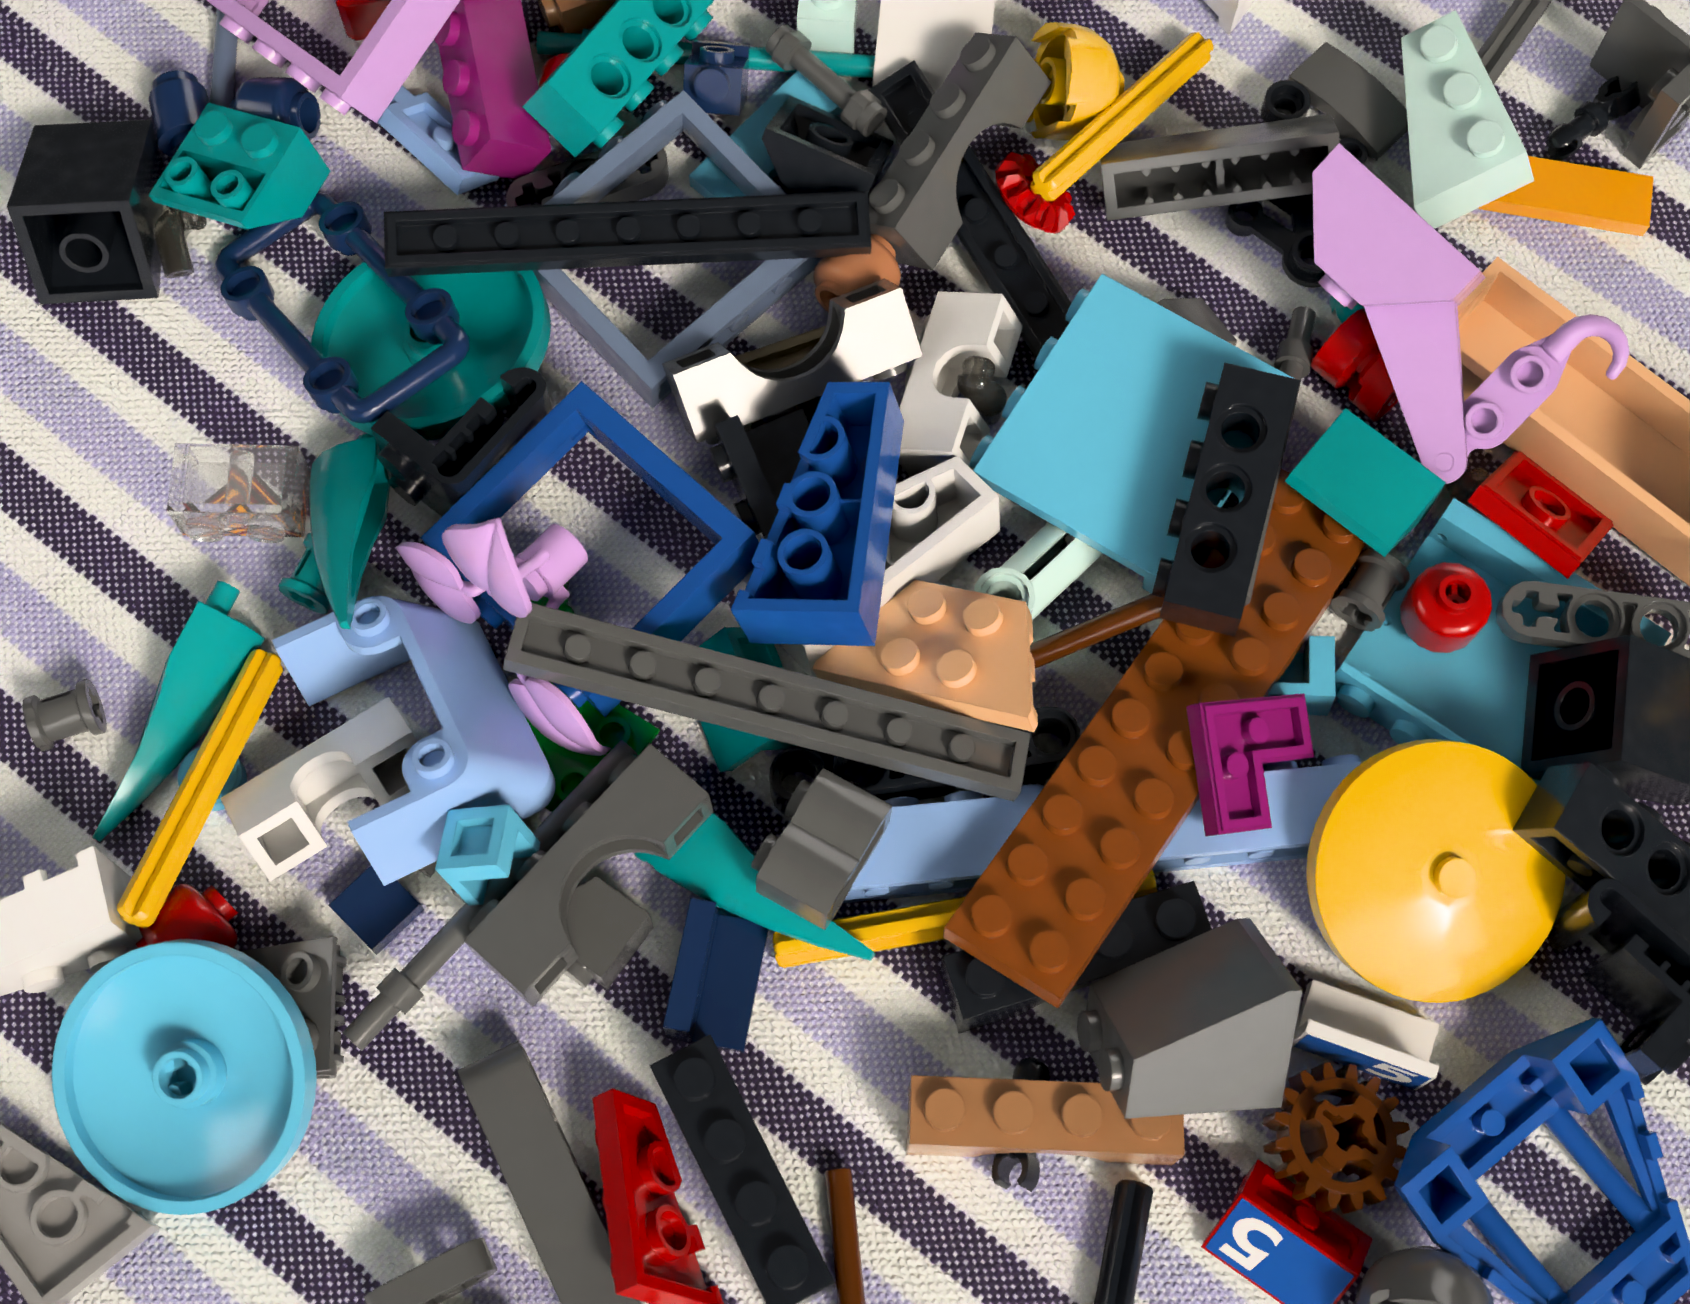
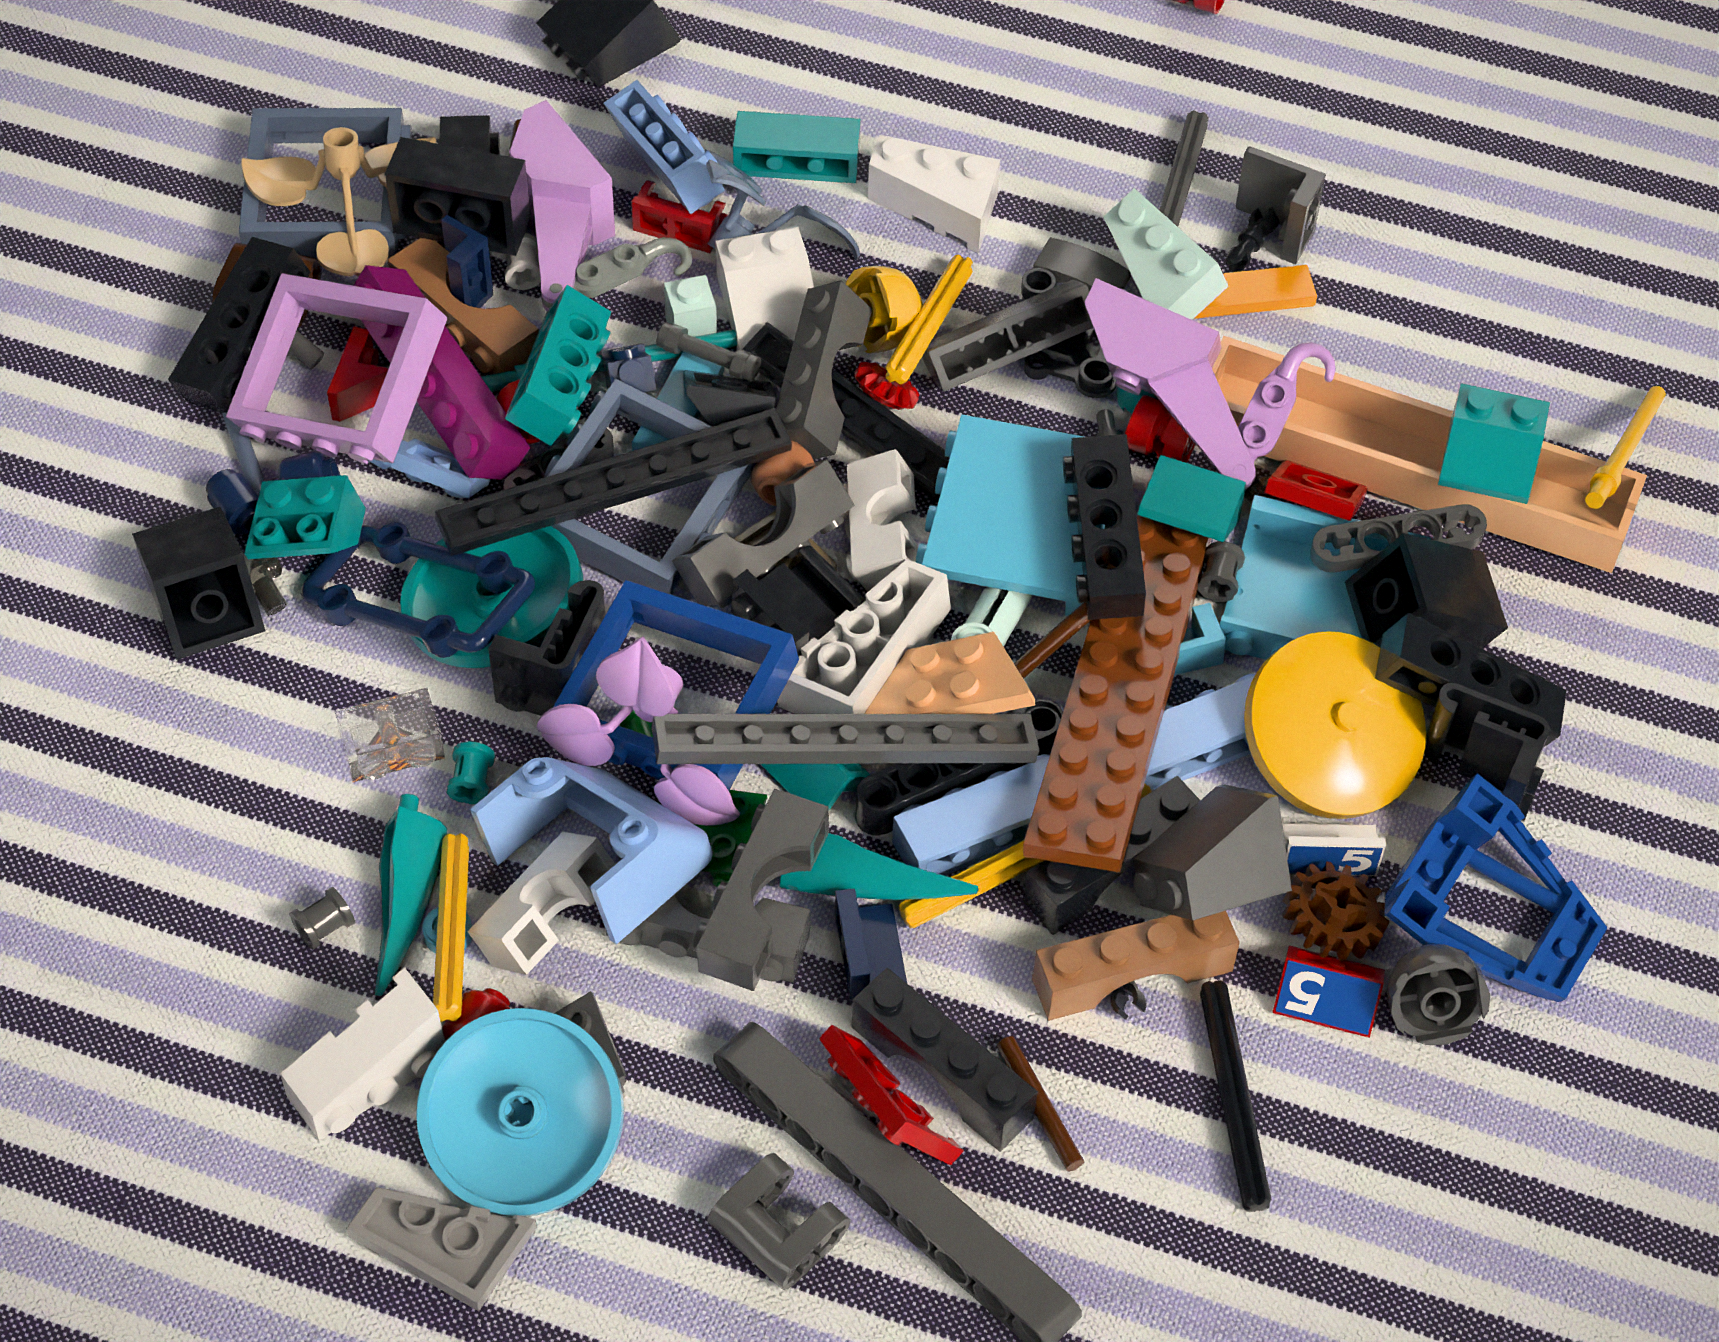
camera: 20 degrees left, 15 degrees down
(346, 516) = (475, 714): teal piece -> none
(376, 910) = (607, 976): dark blue tile -> none
(402, 989) = (658, 1002): dark grey bar -> none
(481, 847) = (684, 881): medium azure panel -> none
(821, 847) = (917, 824): dark grey brick -> none
(829, 543) = (844, 630): blue wedge -> none
(982, 391) = (900, 510): clear smoke arm -> none
(1229, 753) = (1172, 682): magenta tile -> none
(1446, 607) = (1276, 564): red head -> none

